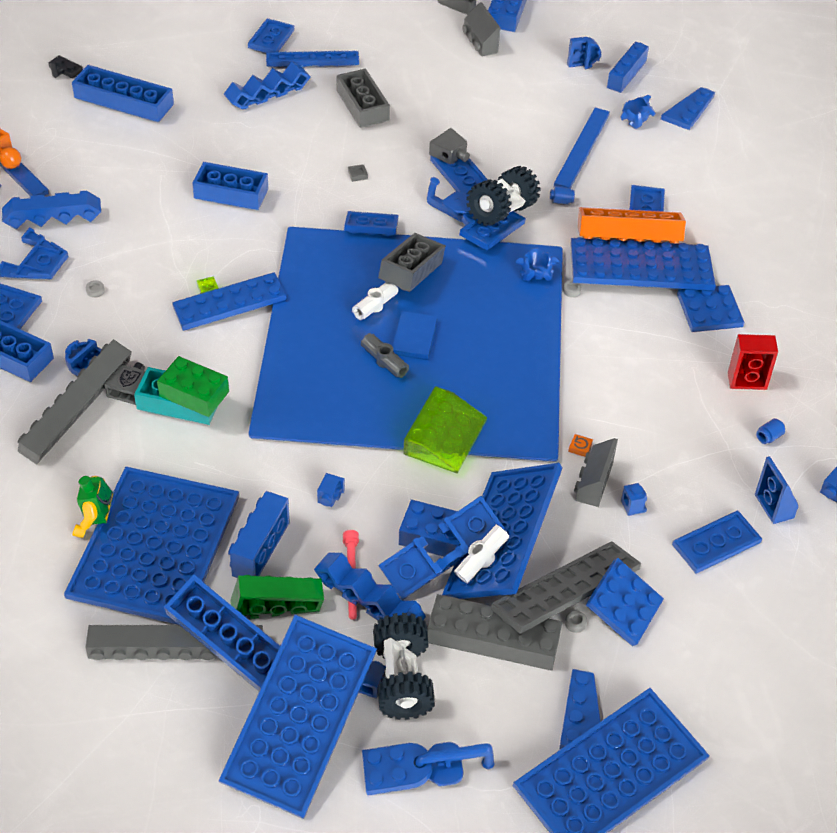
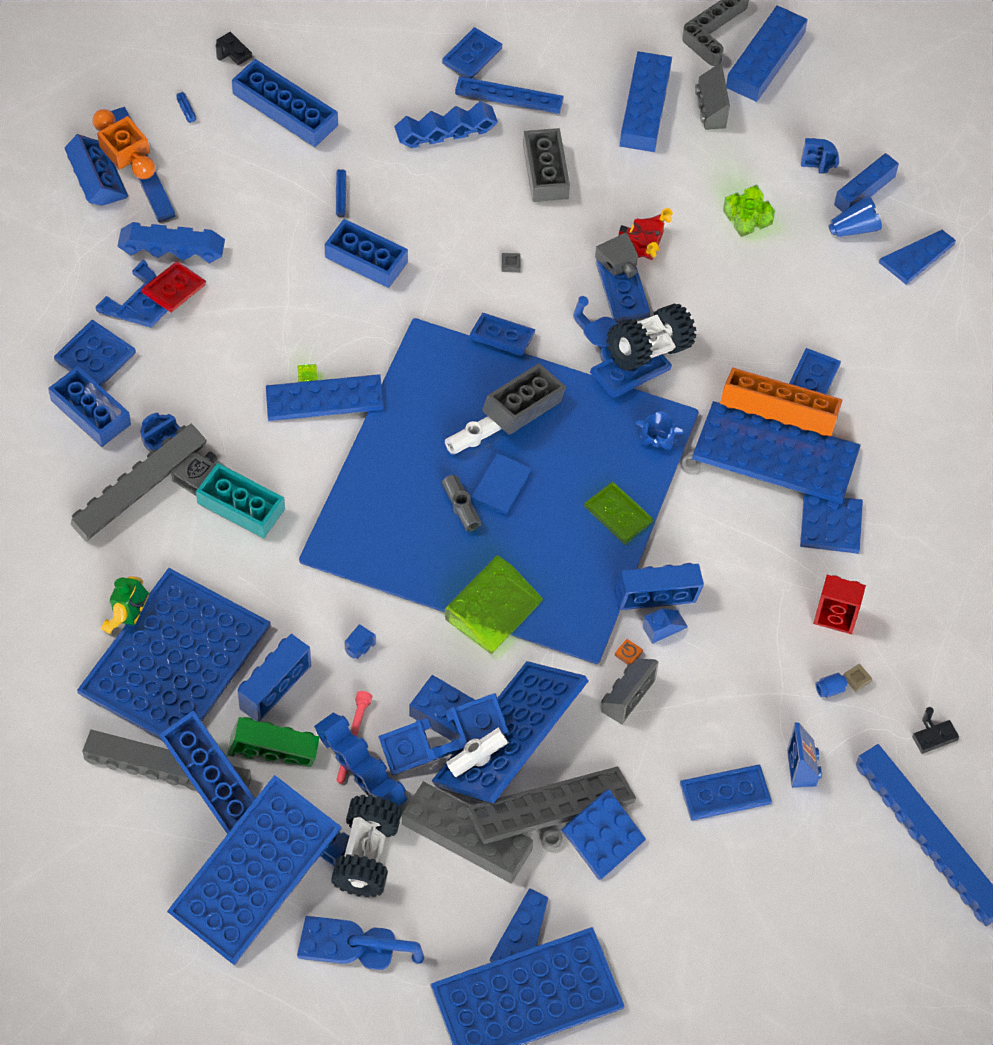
camera: 15 degrees right, 10 degrees up
(35, 113) = (186, 107): none -> blue axle
(63, 242) = (173, 286): none -> red tile
(95, 288) = (192, 349): light grey tile -> none
(192, 149) = (340, 192): none -> blue axle
(193, 386) = (254, 499): green brick -> none
(427, 43) = (645, 101): none -> blue brick
(469, 128) = (647, 233): none -> red torso
(526, 336) = (618, 513): none -> clear neon green tile
(543, 99) = (748, 210): none -> clear neon green brick
(562, 195) = (723, 343): blue brick -> none
(582, 148) = (771, 285): blue tile -> none
(588, 382) = (658, 586): none -> blue brick
(601, 415) = (663, 624): none -> blue slope
(633, 87) = (856, 219): none -> blue cone
(634, 499) = (658, 727): blue brick -> none
(637, 111) = (852, 249): blue hair -> none
(791, 420) = (857, 677): none -> dark tan plate

